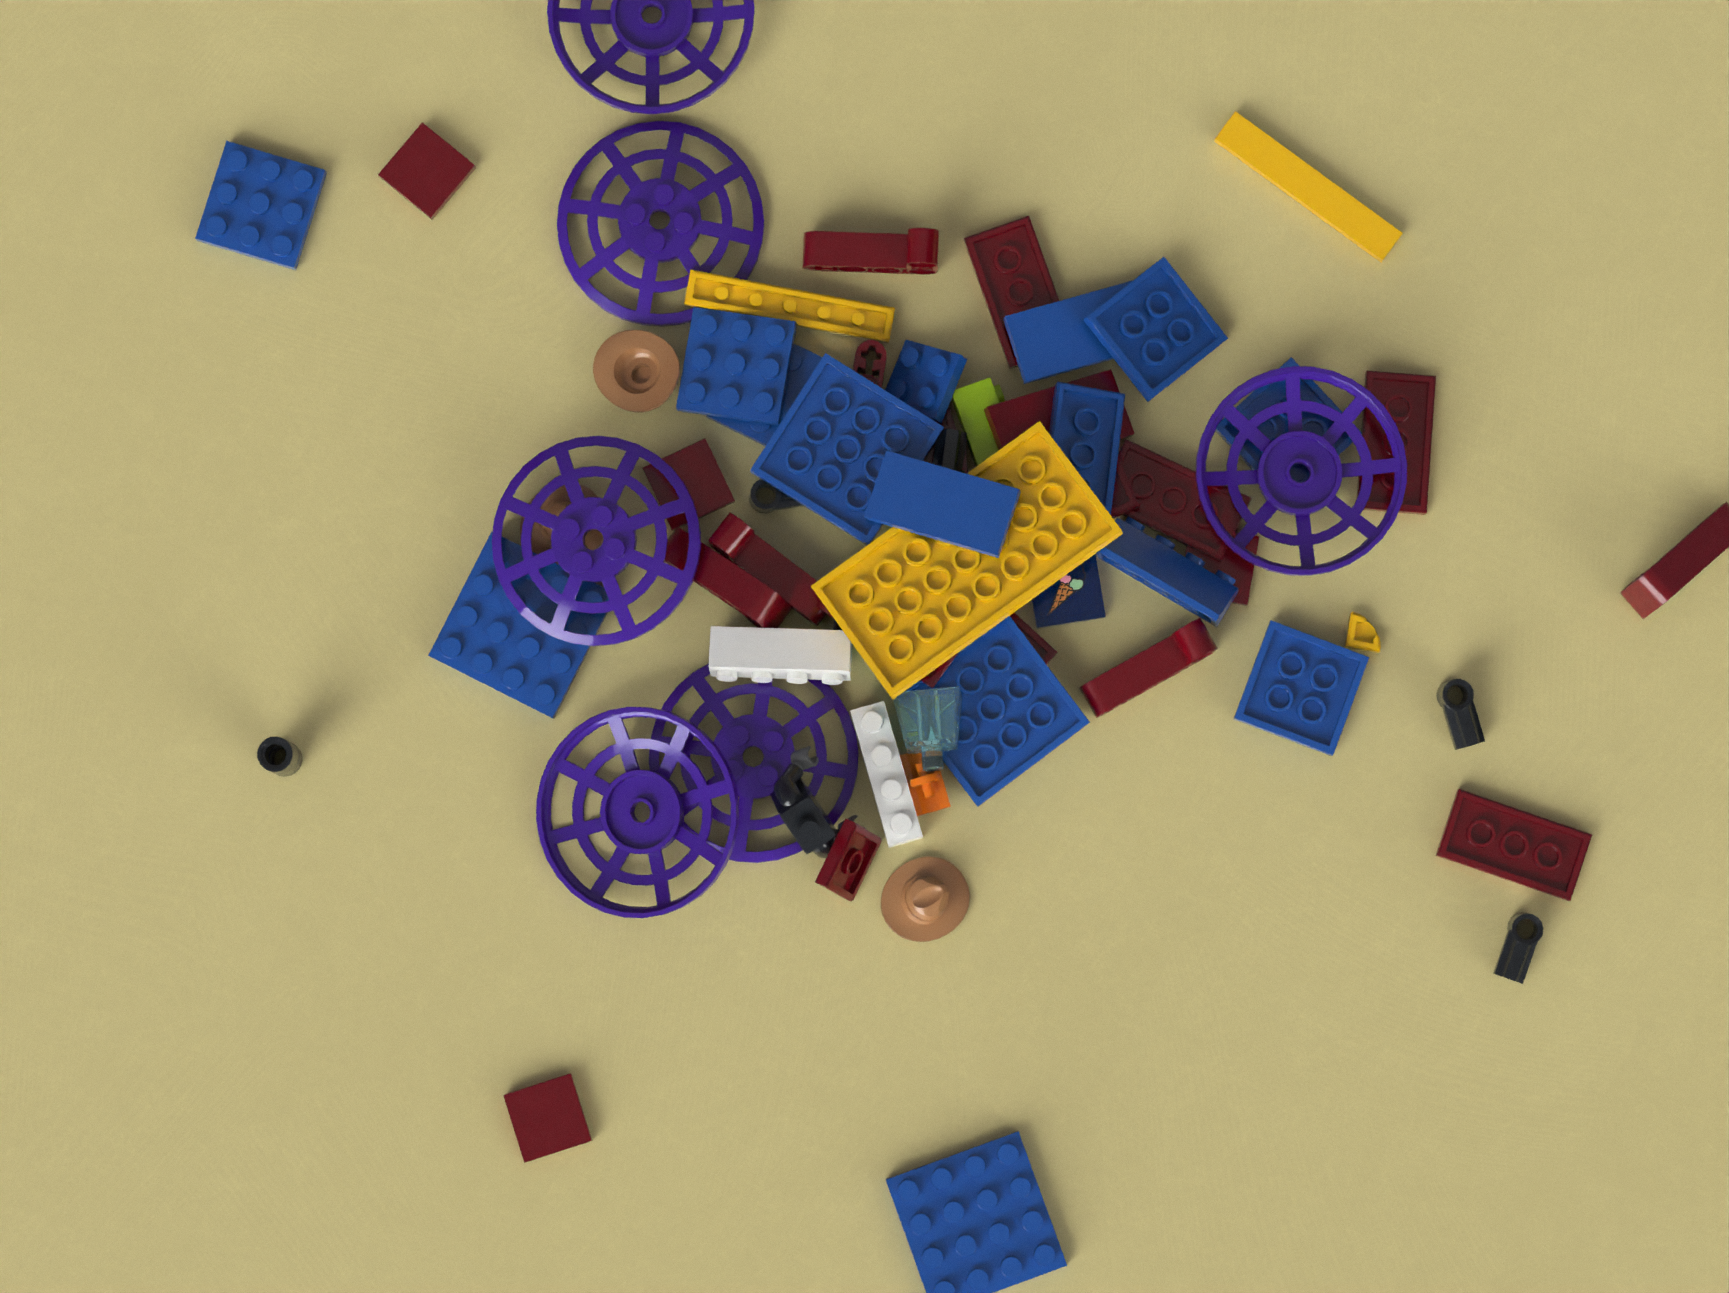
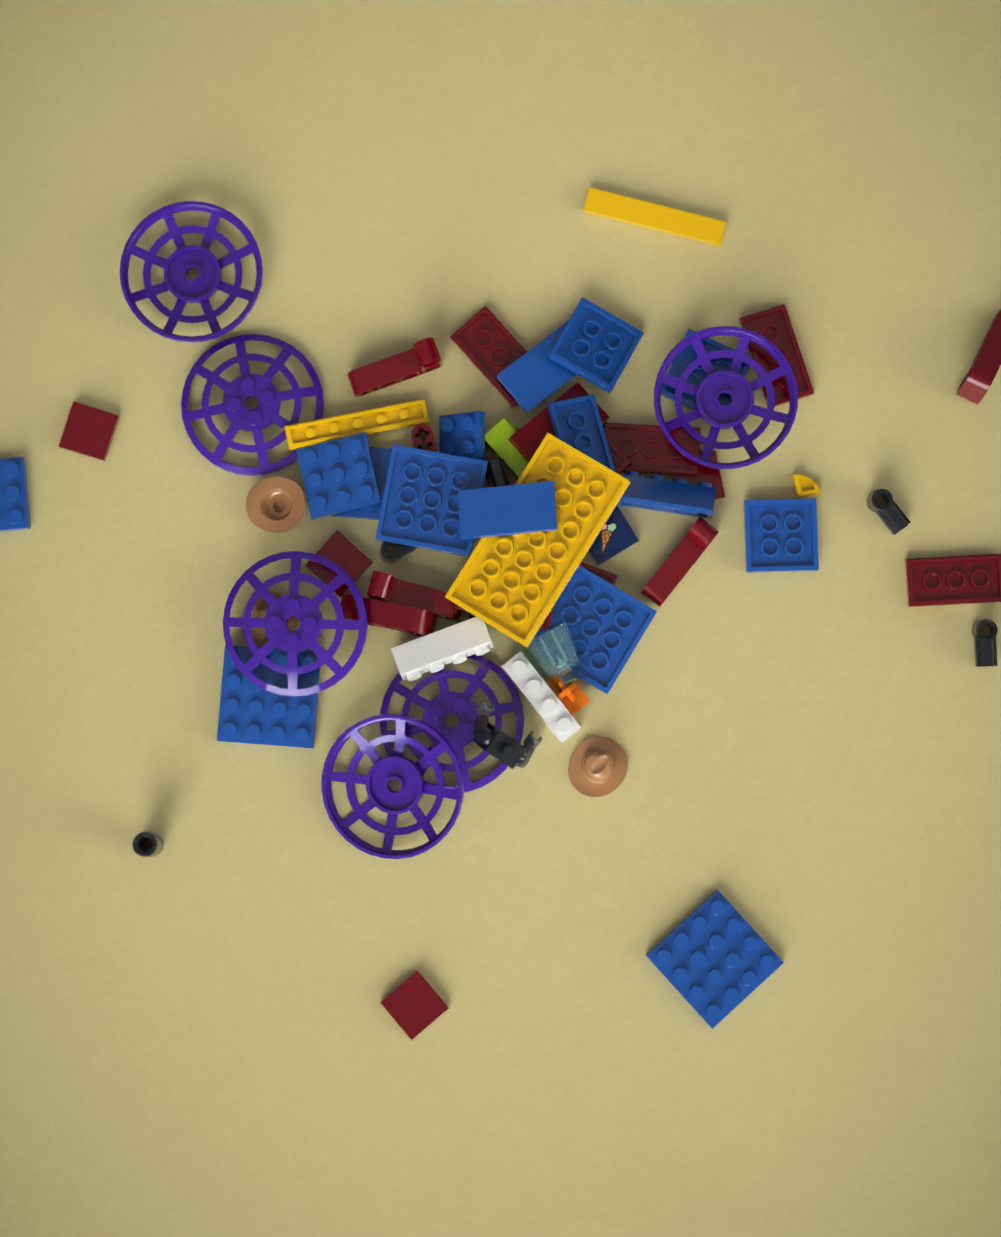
camera: 25 degrees left, 0 degrees up
(848, 860) = (540, 761): dark red tile -> none

